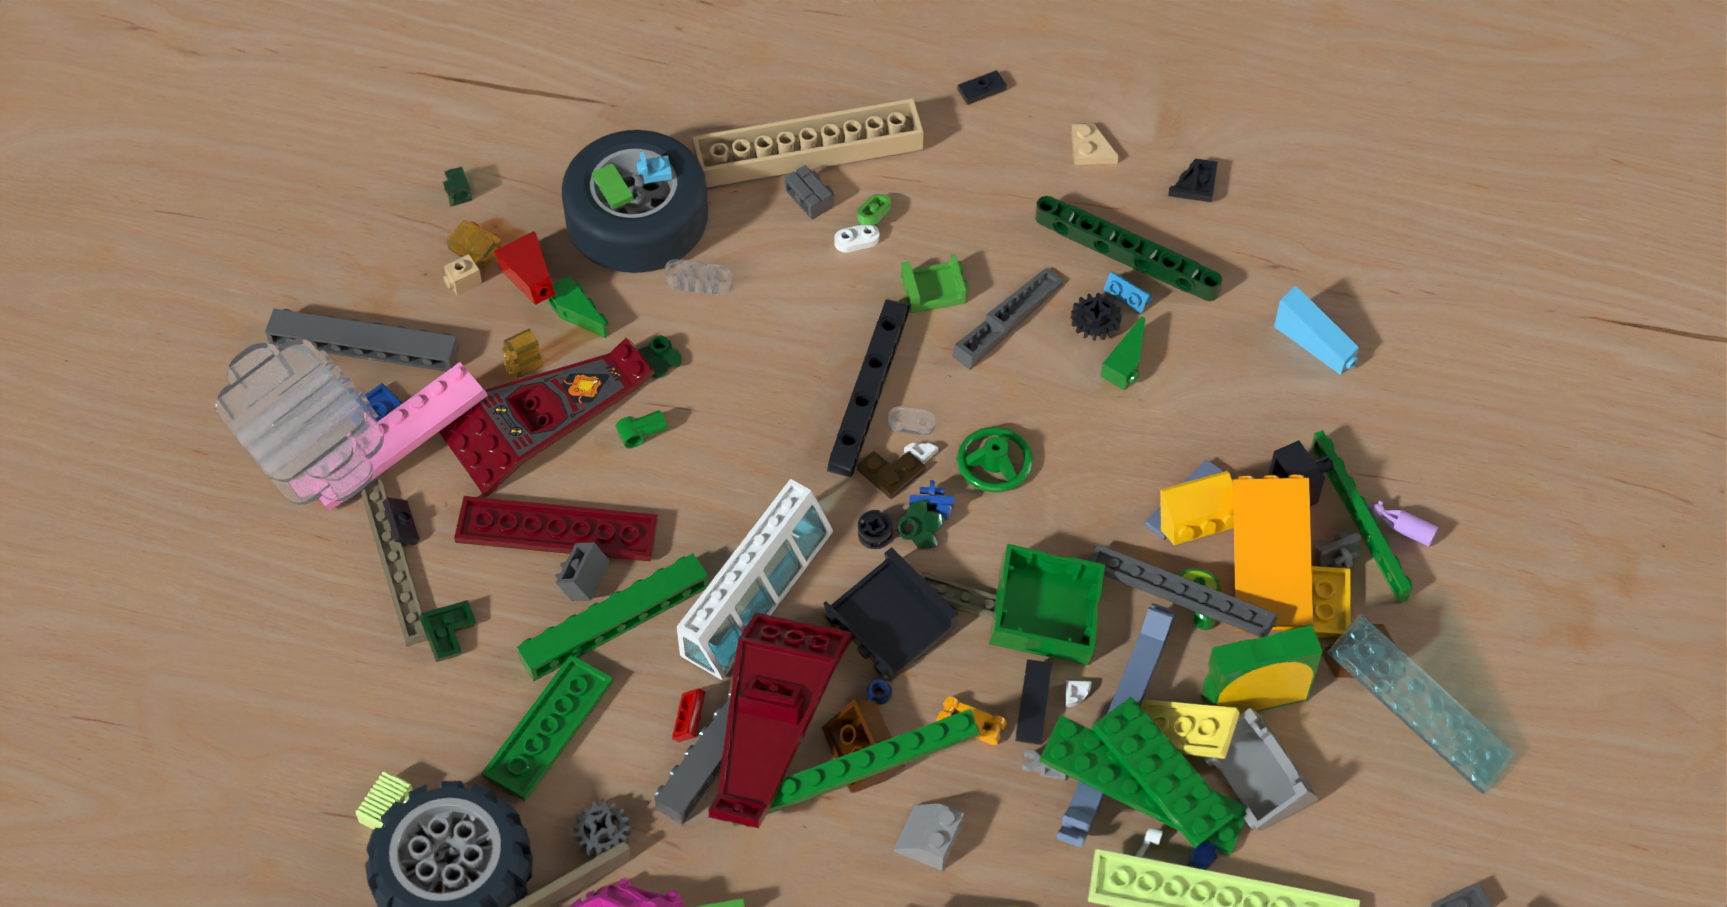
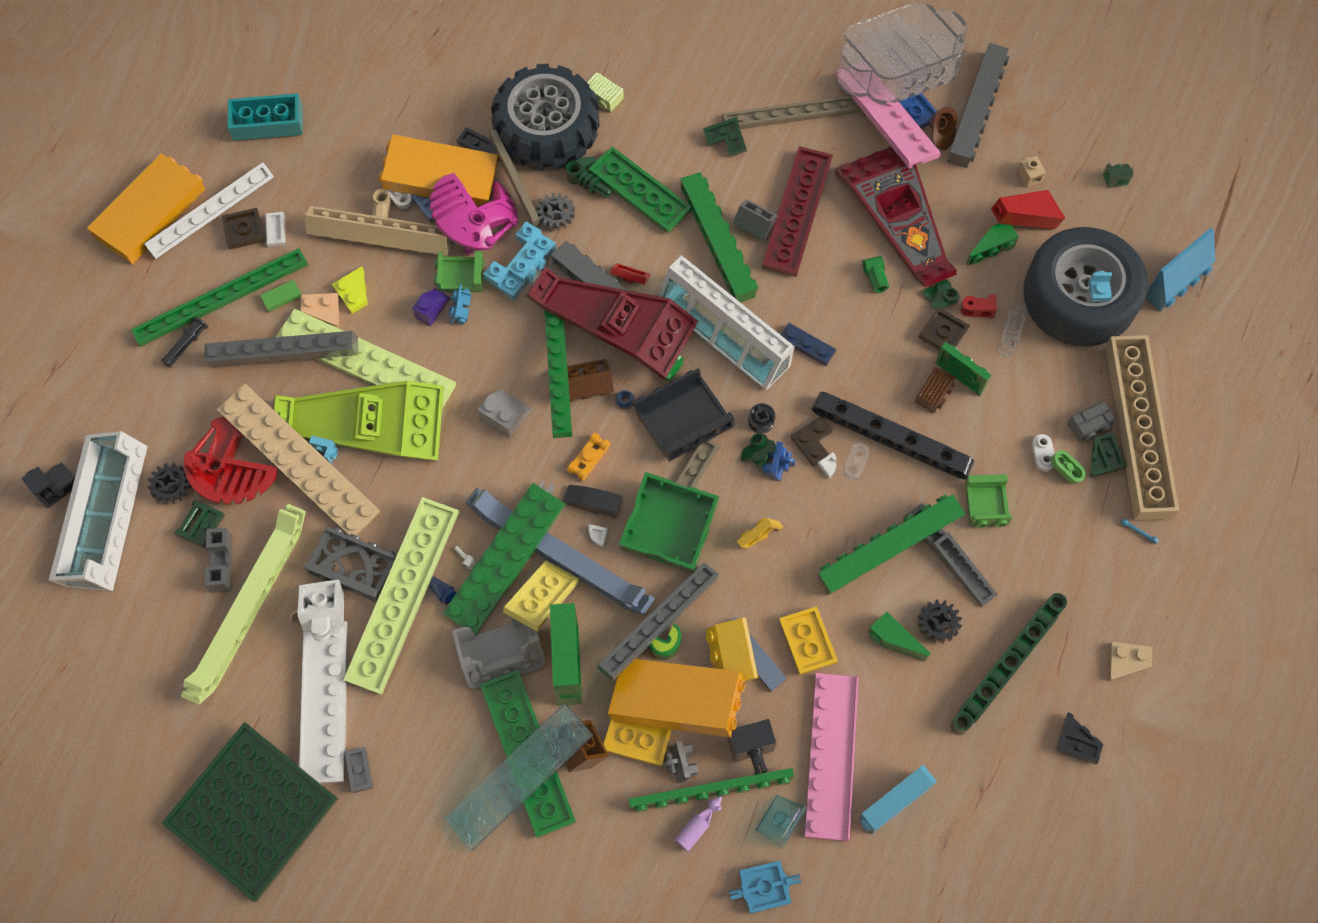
camera: 100 degrees right, 10 degrees up
(401, 521) = (819, 117): black plate -> none
(403, 376) = (943, 127): none -> reddish brown piece
(478, 243) = (1061, 181): clear yellow brick -> none
(522, 354) = (948, 198): clear yellow brick -> none
(541, 799) = (585, 179): none -> dark green piece
(588, 108) = (1183, 272): none -> dark azure slope
(612, 186) = (1084, 257): bright green tile -> none
(672, 319) = (979, 307): none -> red leg
(694, 852) = (524, 265): none -> medium azure bracket
(712, 348) = (943, 328): none -> dark brown plate
(756, 495) = (808, 344): none -> dark blue plate
(768, 316) = (963, 368): none -> green plate
(798, 348) = (935, 389): none -> reddish brown brick
(849, 177) = (1106, 455): none -> dark green wing
(927, 157) = (1125, 522): none -> dark azure hinge
(982, 87) = (1201, 581): black plate -> none
(994, 458) = (812, 516): green piece -> none
(1018, 368) = (890, 544): none -> green brick
(1034, 506) = (760, 532): none -> yellow wing
(1127, 293) = (957, 659): dark azure hinge -> none
(1154, 443) = (808, 640): none -> yellow plate
(1163, 772) = (506, 568): green plate -> none
(1282, 405) = (831, 757): none -> bright pink plate
(1364, 726) = (515, 723): none -> green plate
(1374, 439) = (780, 820): none -> clear light blue slope
(1450, 449) = (765, 887): none -> dark azure plate

